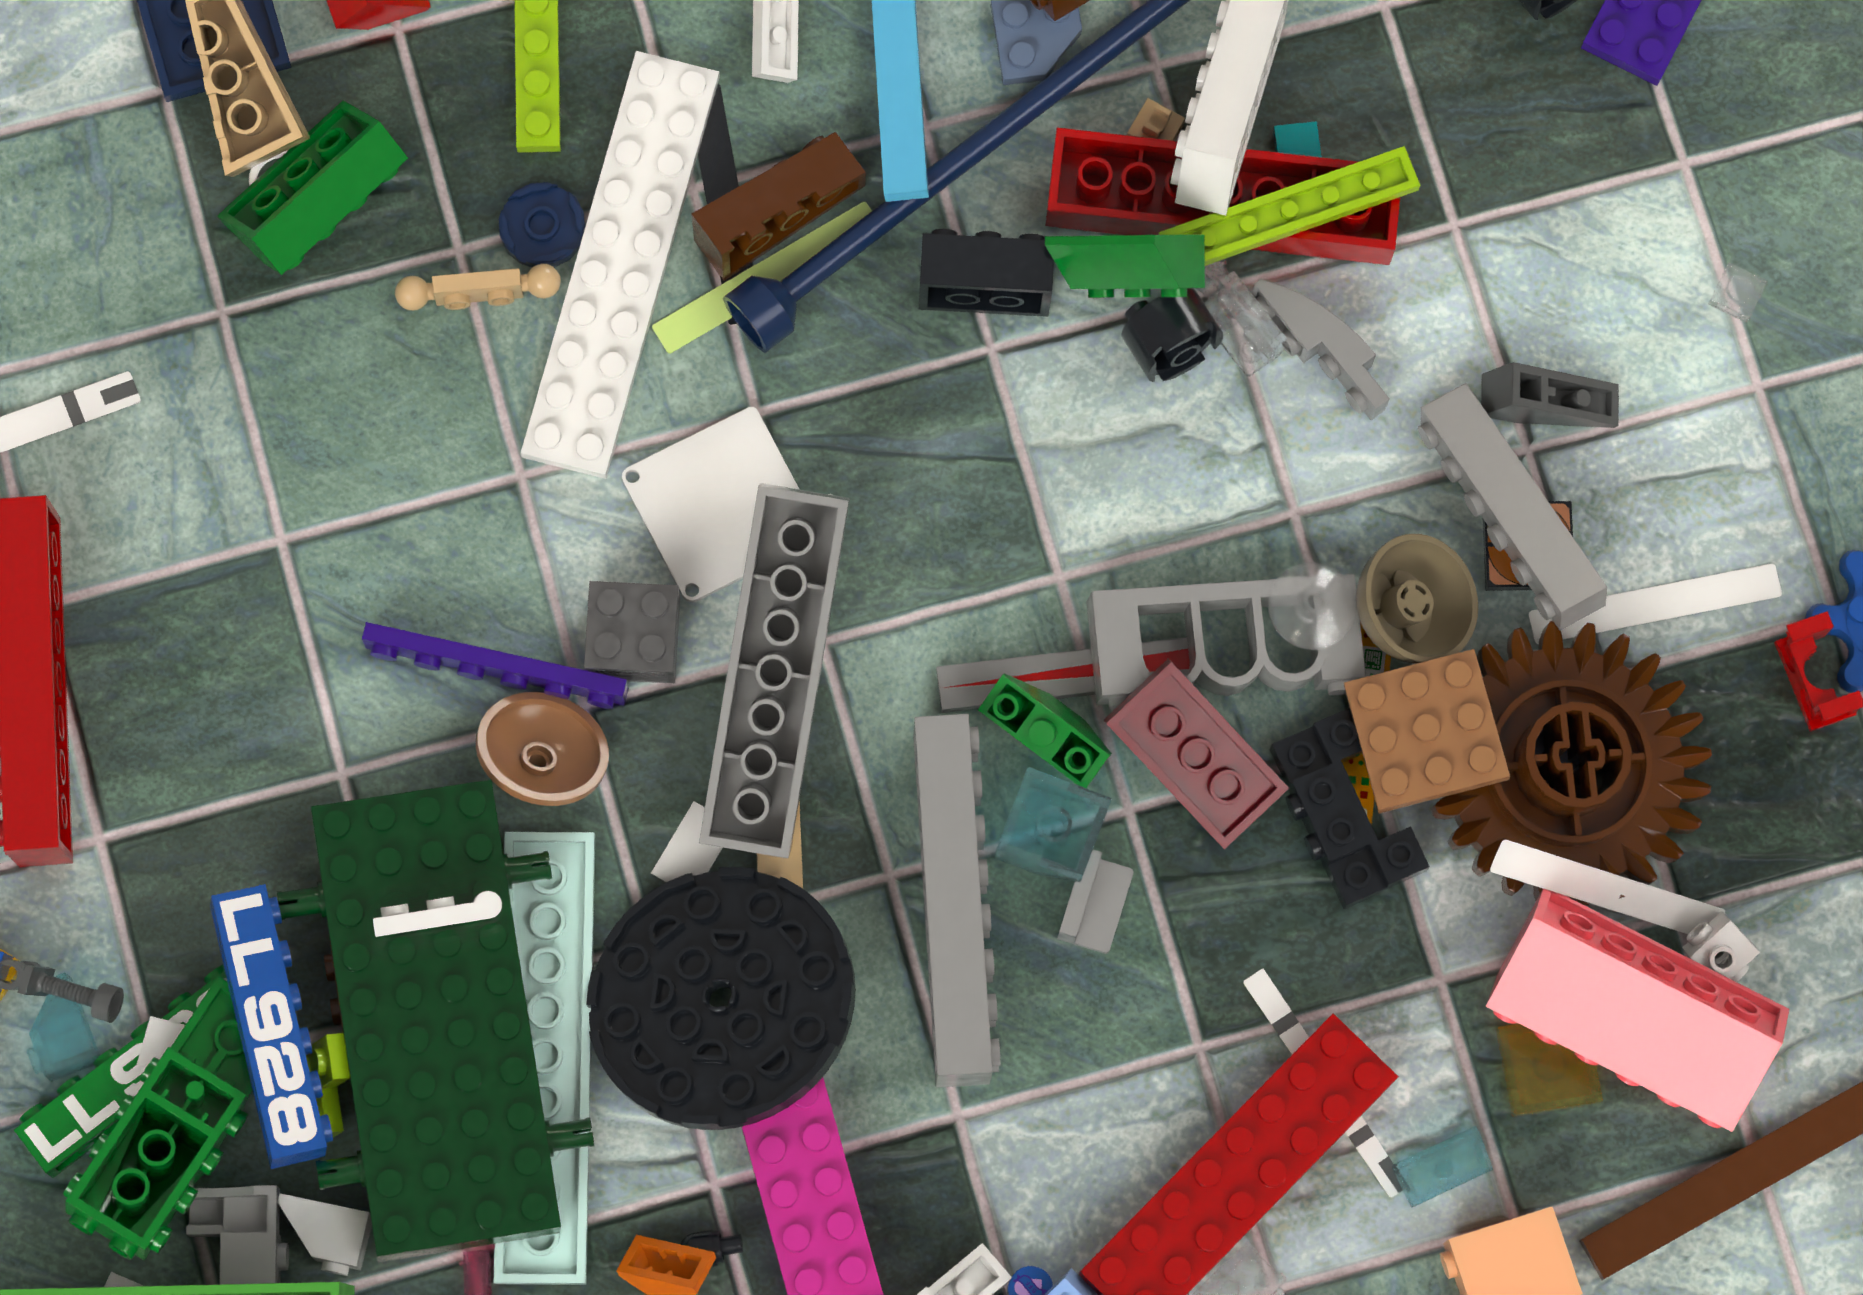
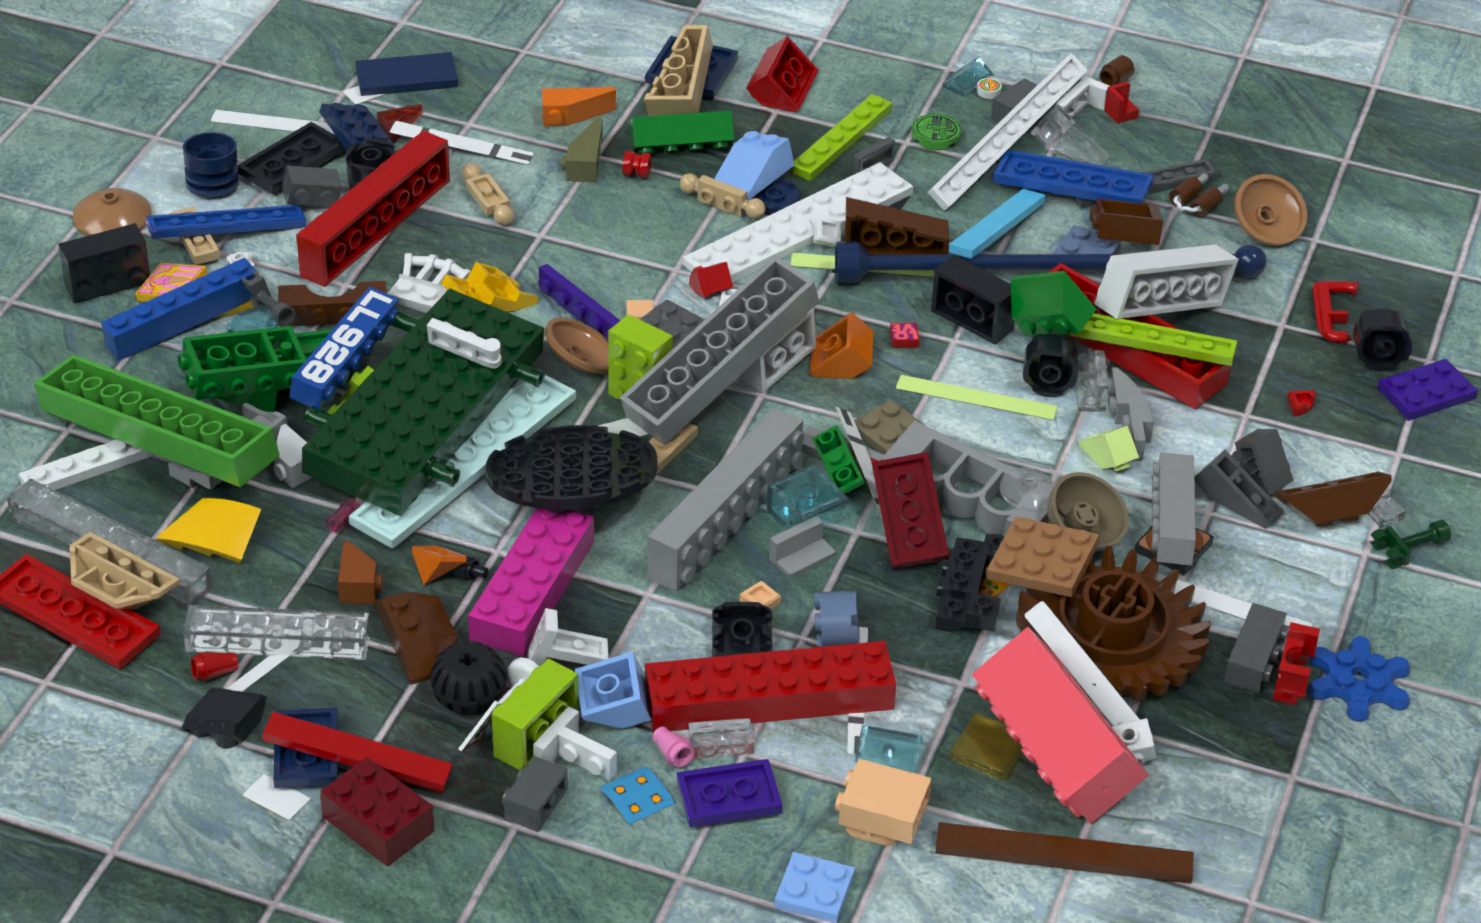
camera: 40 degrees right, 35 degrees down
(109, 243) = (574, 105): none -> orange slope
(148, 518) = (487, 194): none -> tan plate
(173, 869) = (322, 310): none -> reddish brown arch
(219, 341) = (584, 154): none -> olive slope
(221, 785) = (417, 291): none -> white plate
(308, 304) = (637, 164): none -> red wheel
(315, 723) = (491, 287): none -> yellow slope
(478, 201) = (756, 162): none -> light blue slope
(545, 603) = (639, 308): none -> light nougat tile
(598, 476) = (710, 279): none -> red tile
(624, 50) = (879, 152): none -> dark grey tile
(665, 749) = (633, 351): none -> lime brick
(679, 260) = (827, 231): none -> white tile
(883, 489) = (843, 349): none -> orange slope
(924, 391) = (904, 335): none -> tile
(1036, 591) = (884, 425): none -> dark tan plate
(1048, 681) = (859, 450): none -> white sticker
(1097, 441) = (977, 397): none -> yellowish green sticker
(1103, 1022) = (761, 593): none -> light nougat tile
(1131, 1104) = (741, 628): none -> black slope
(1246, 1012) = (837, 618): none -> sand blue brick
(1340, 431) = (1111, 448): none -> yellowish green slope
(1508, 151) = (1301, 401): none -> red tile
(1556, 332) = (1264, 459): none -> dark grey brick
(1674, 326) = (1336, 499): none -> reddish brown wedge
(1749, 669) = (1257, 648): none -> dark grey brick
(1827, 292) = (1399, 547): none -> dark green bar

